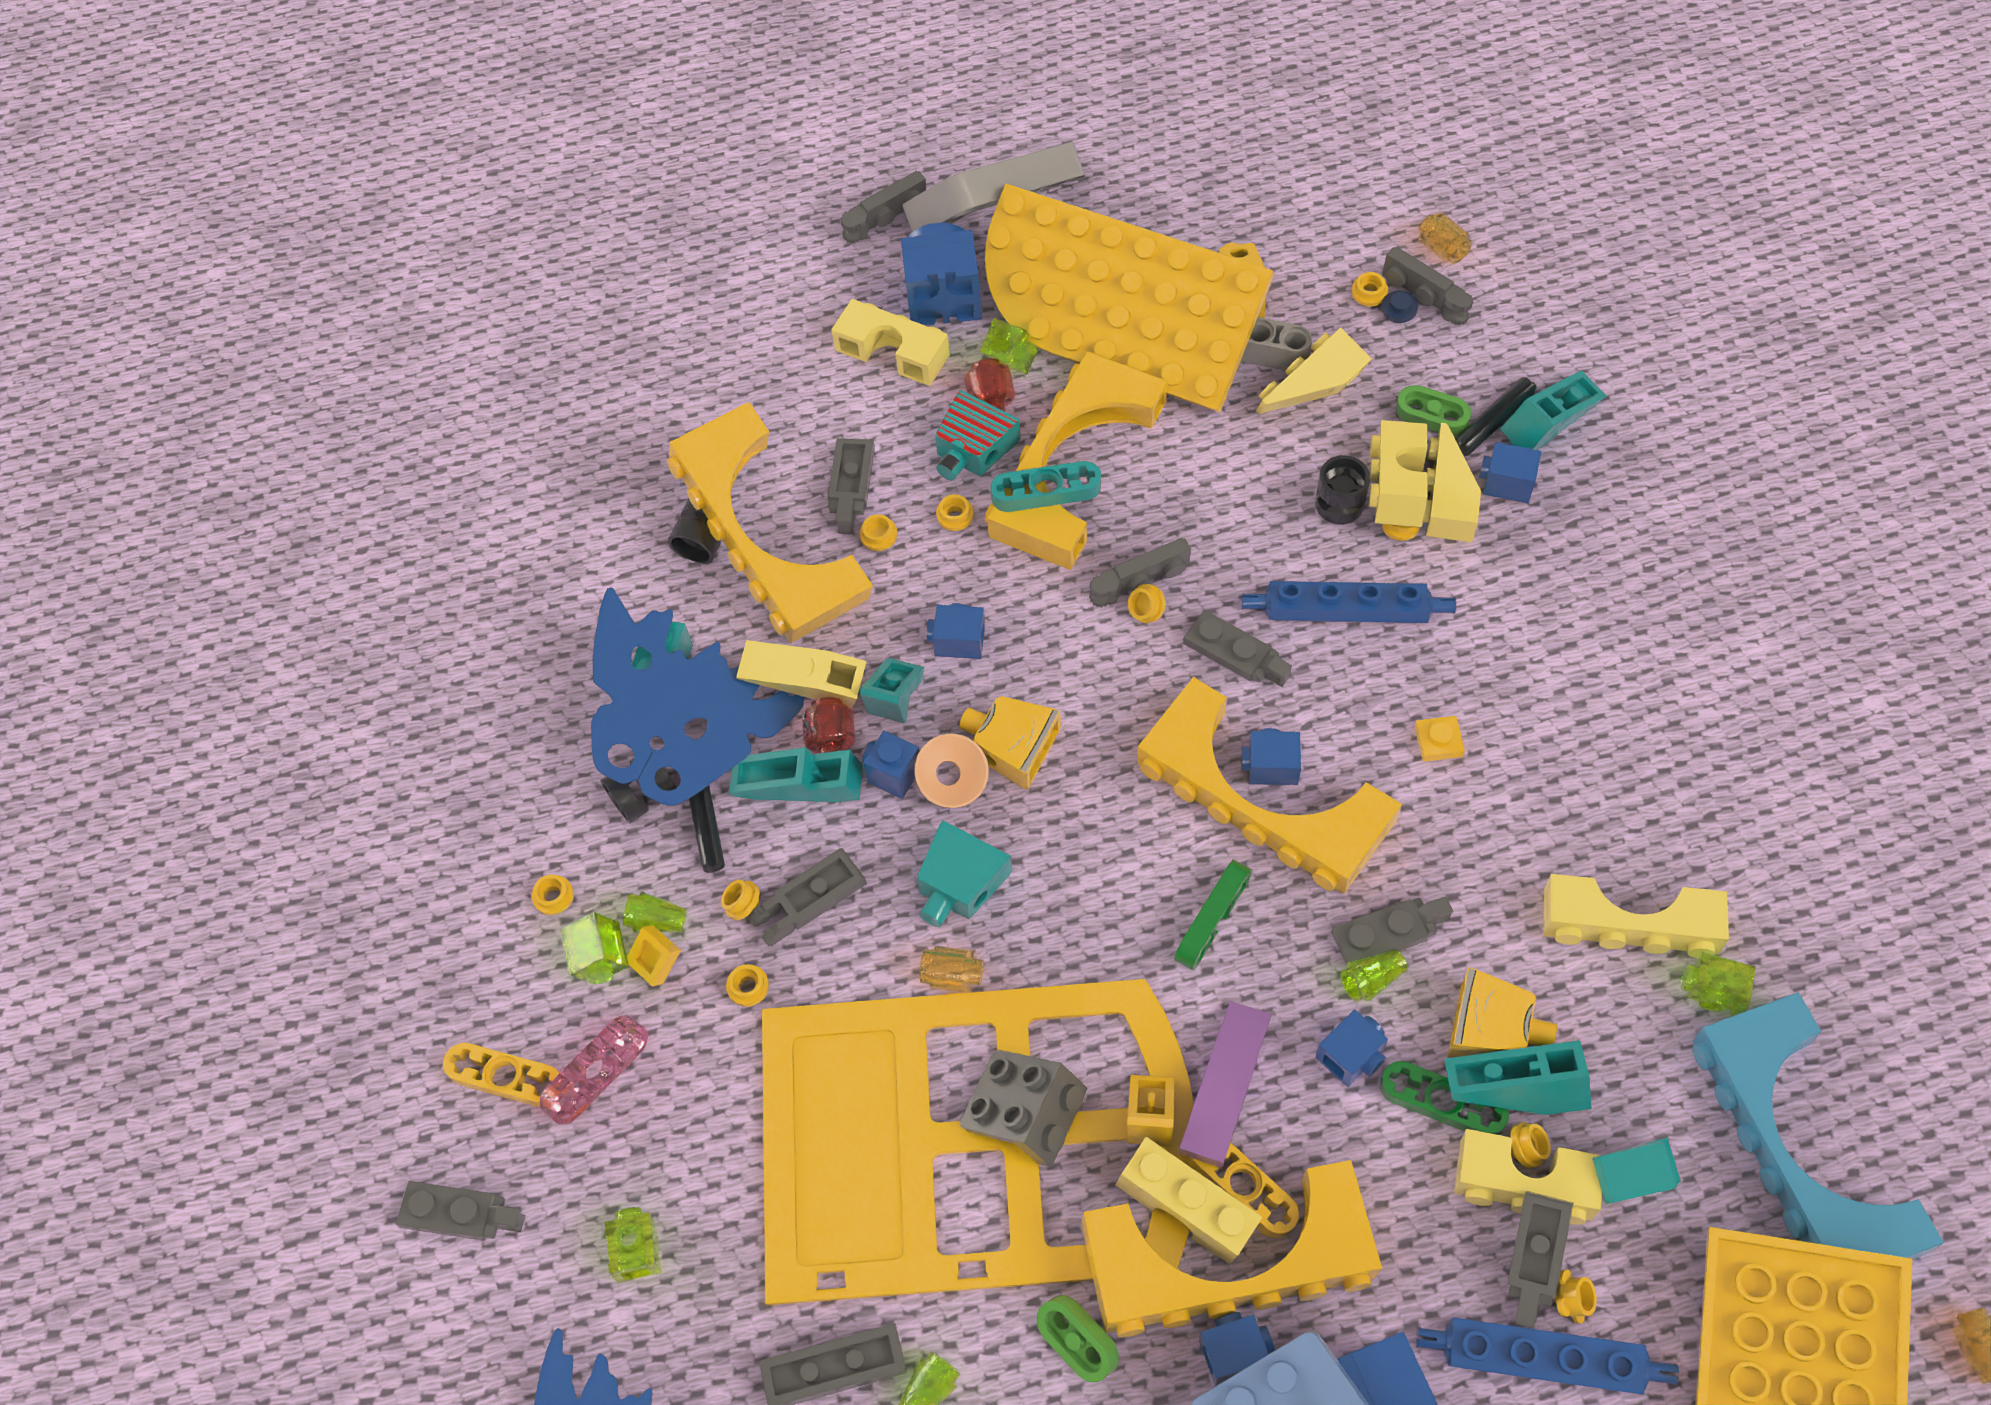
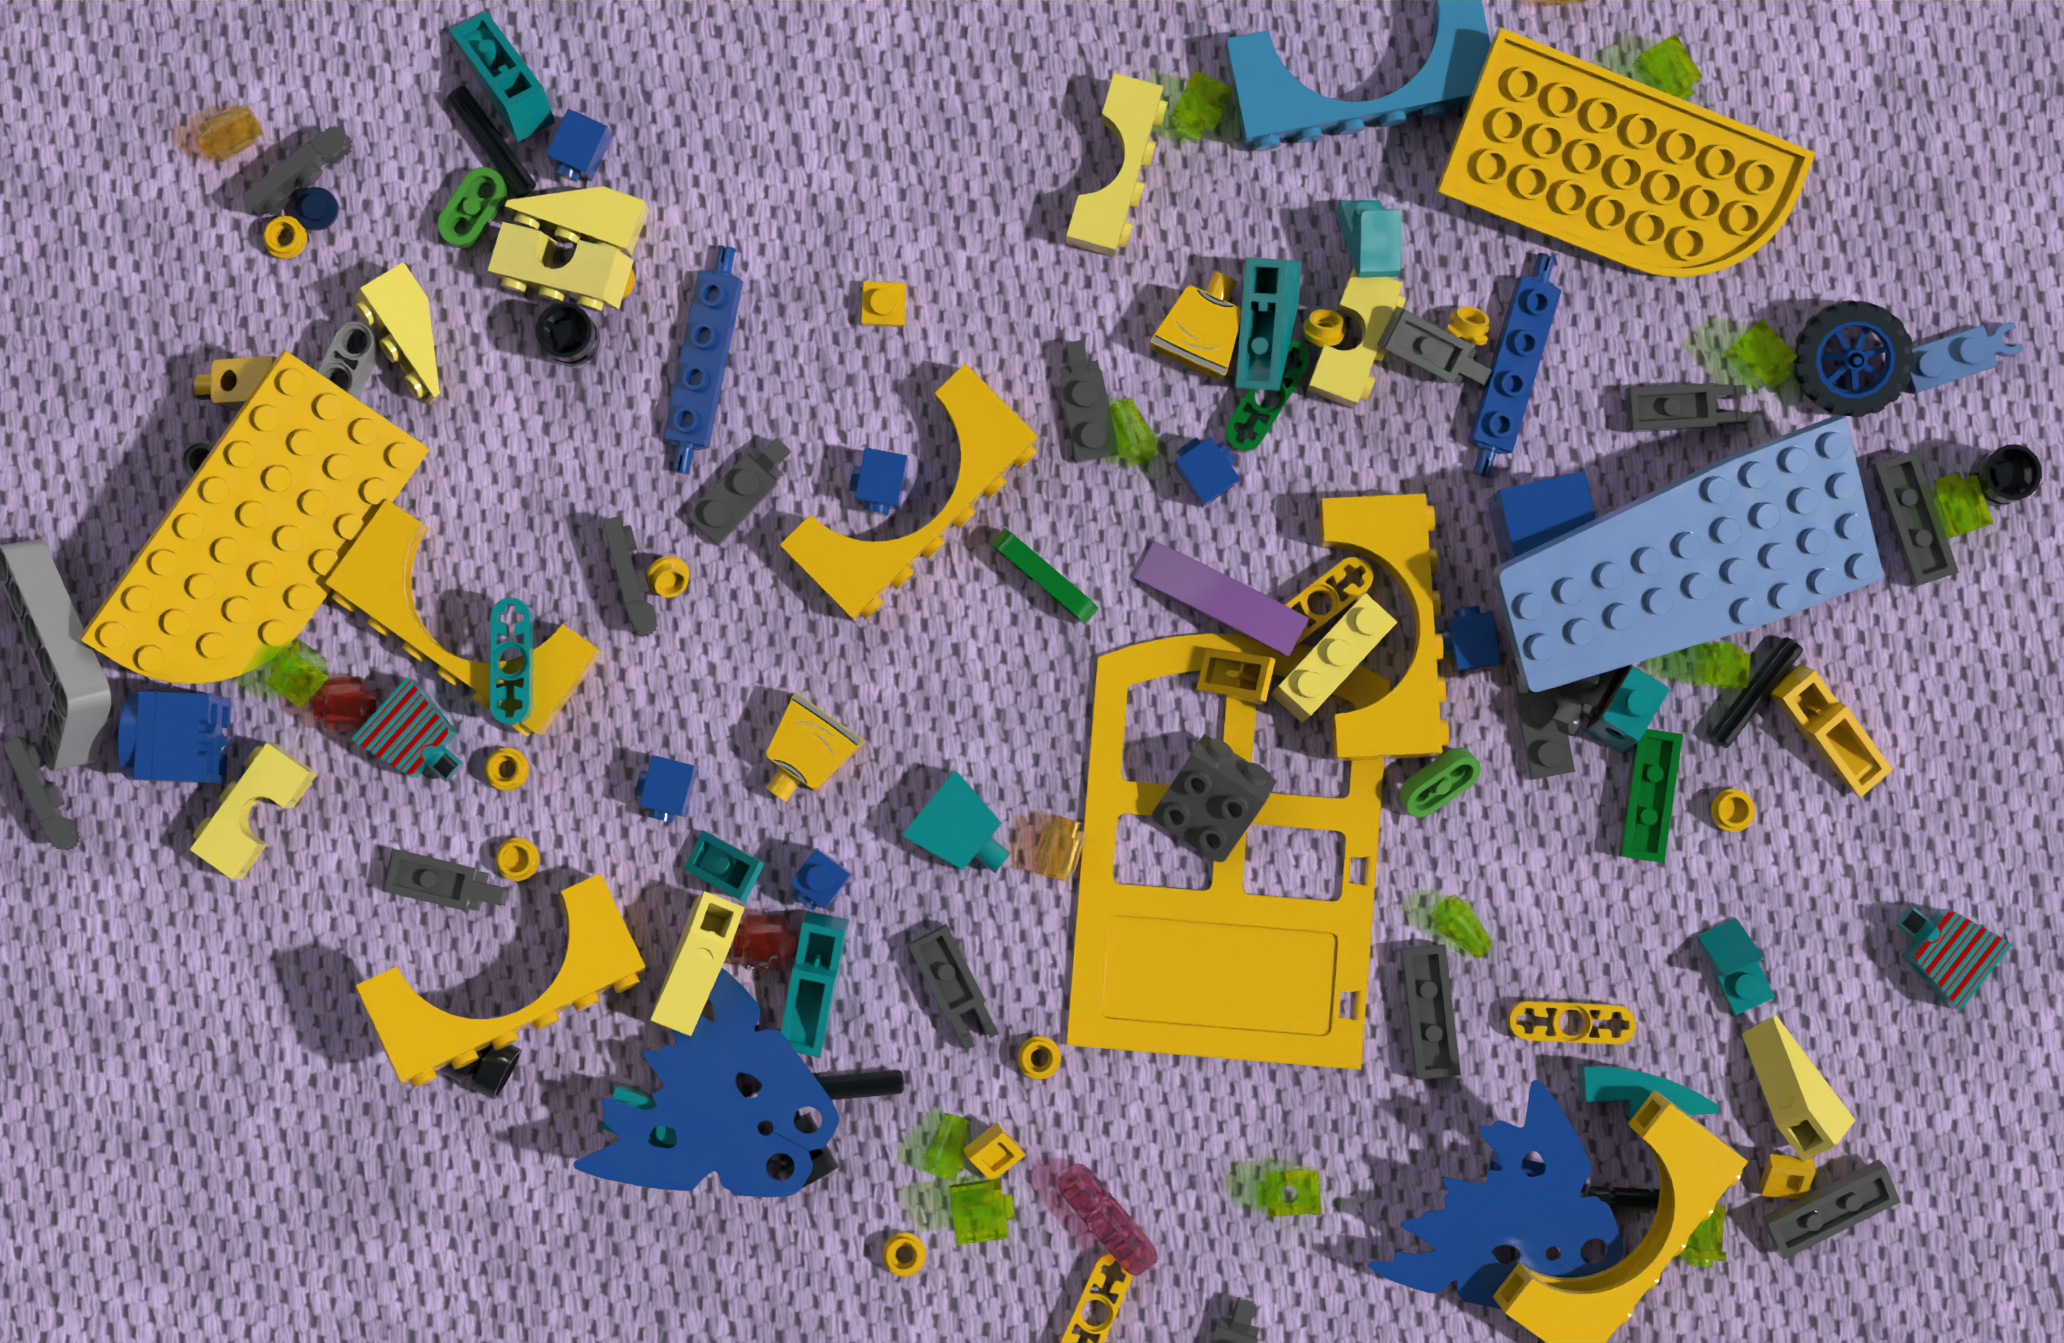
camera: 85 degrees left, 25 degrees up
(740, 899) = (945, 1055): yellow plate -> none
(965, 756) = (858, 807): light nougat piece -> none

